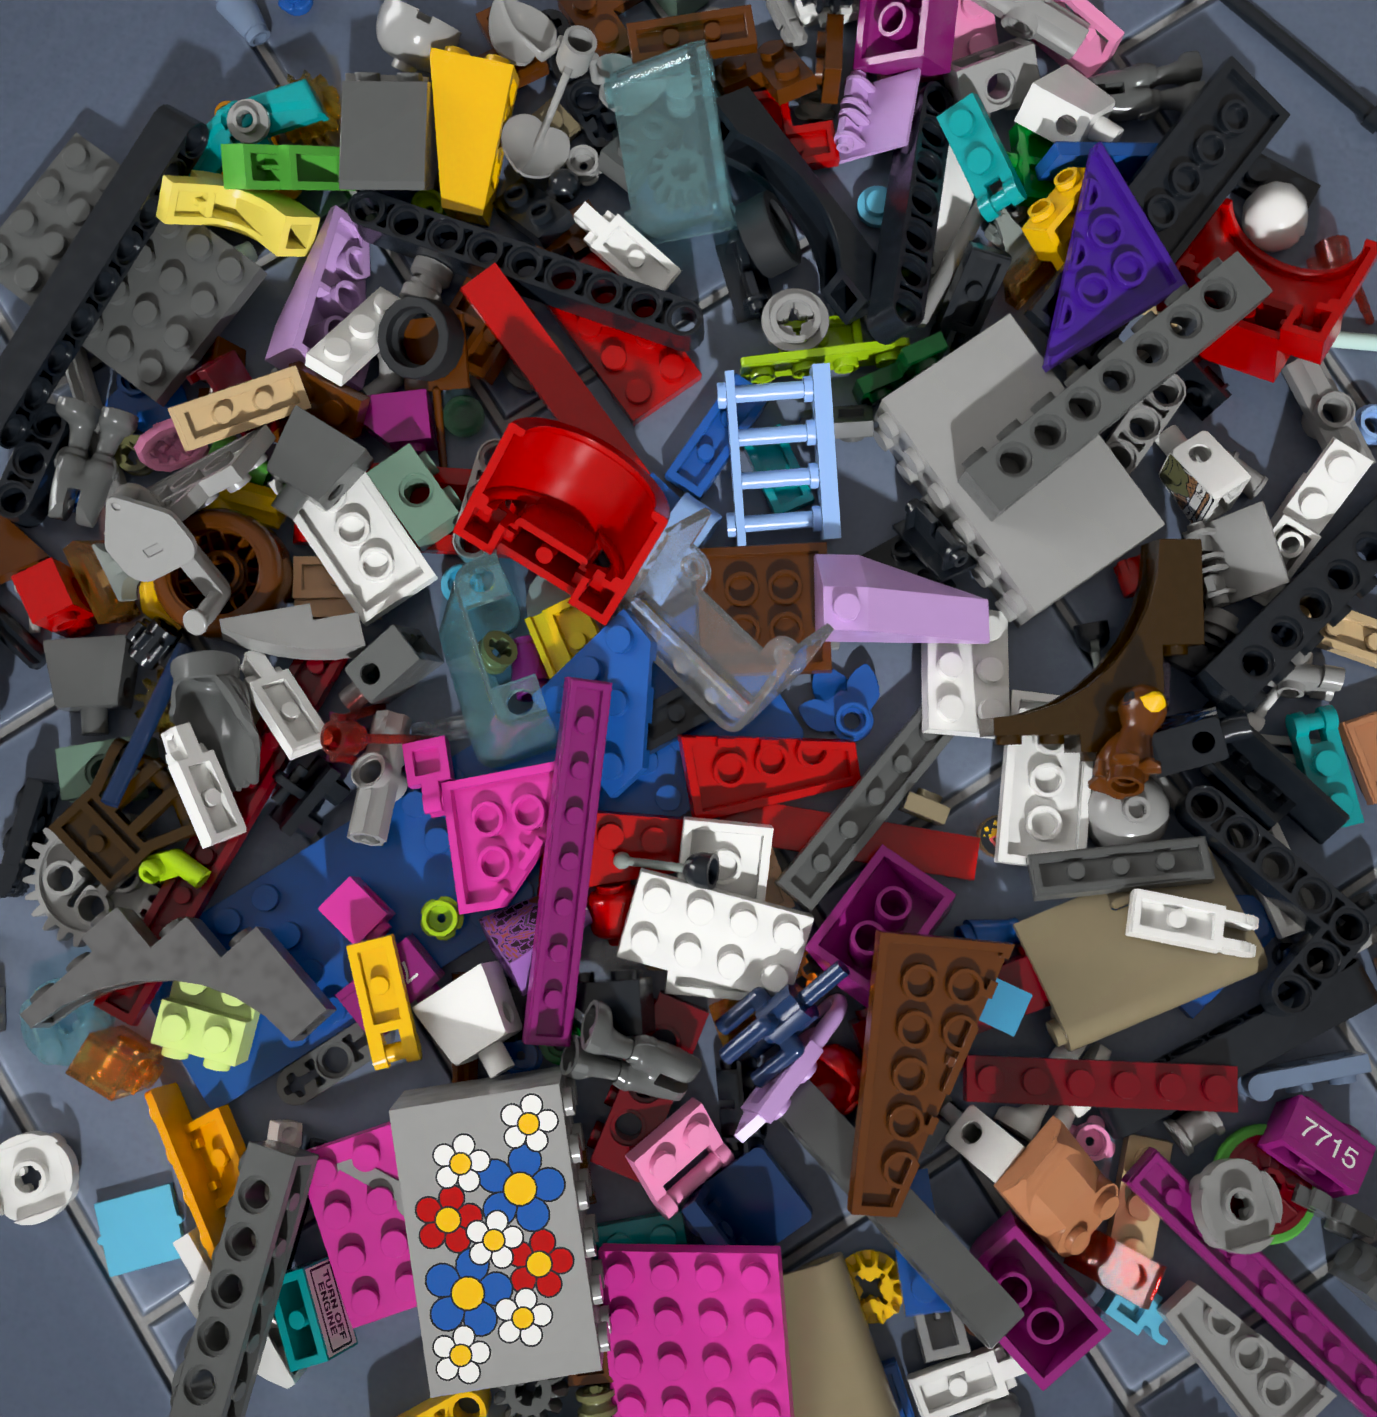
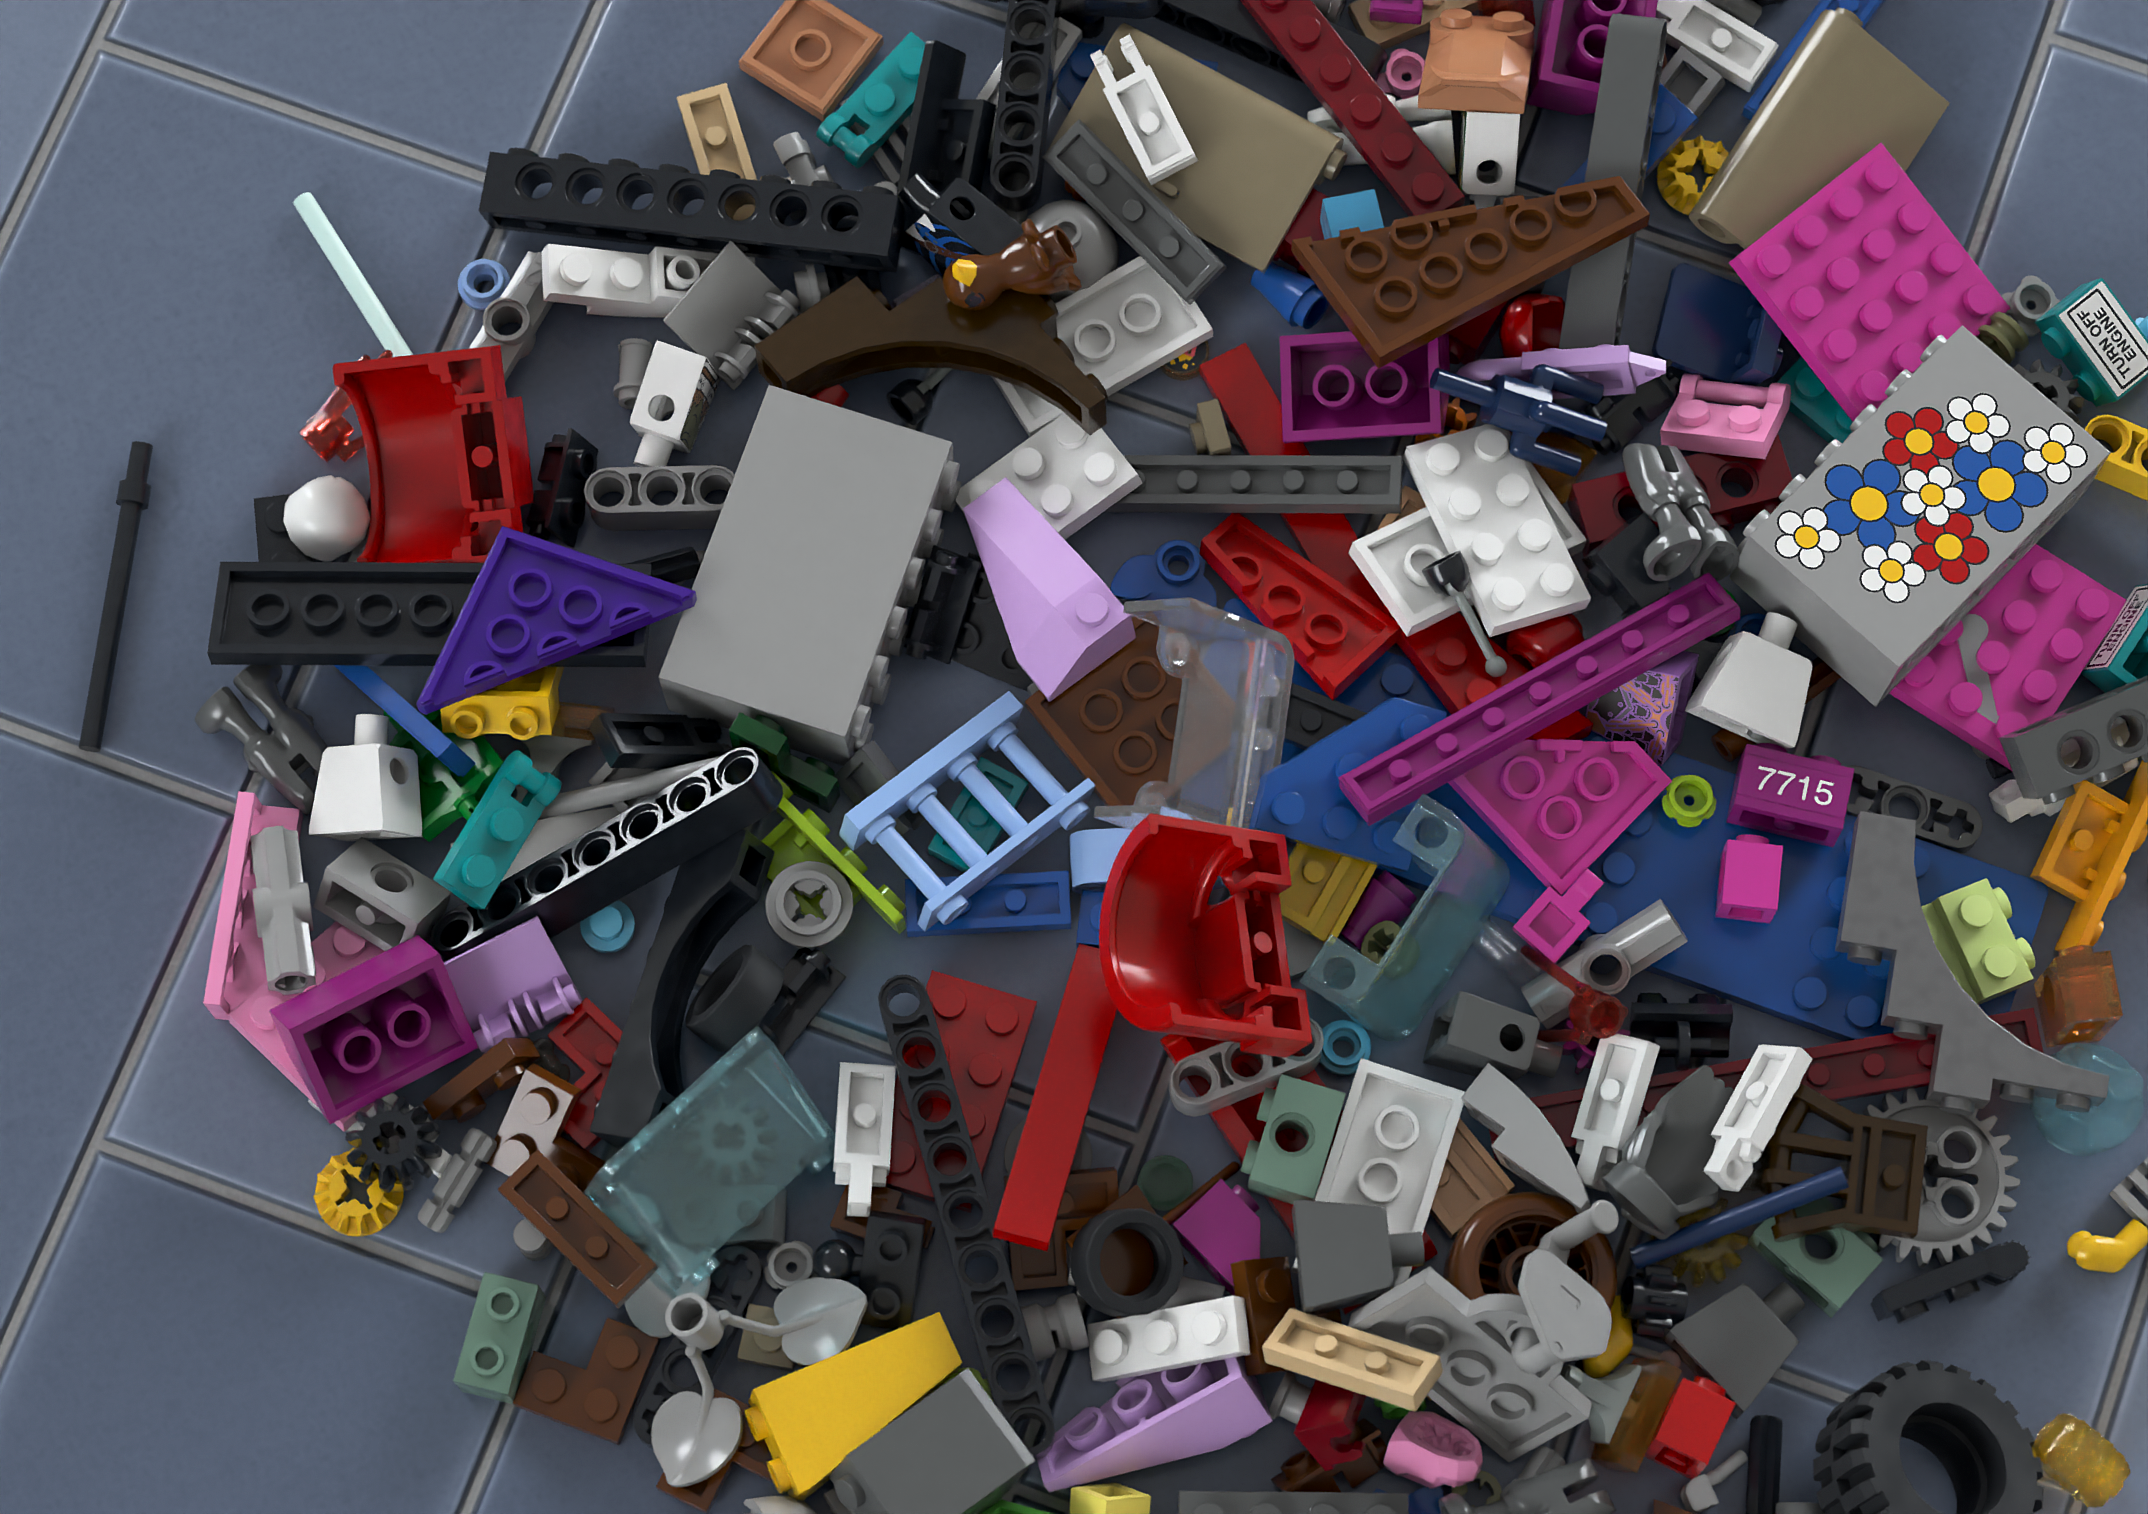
camera: 125 degrees left, 10 degrees down
(173, 864) = (1851, 1090): lime arm -> none
(383, 1000) = (1807, 773): yellow plate -> none
(1229, 283) = (490, 460): dark grey brick -> none

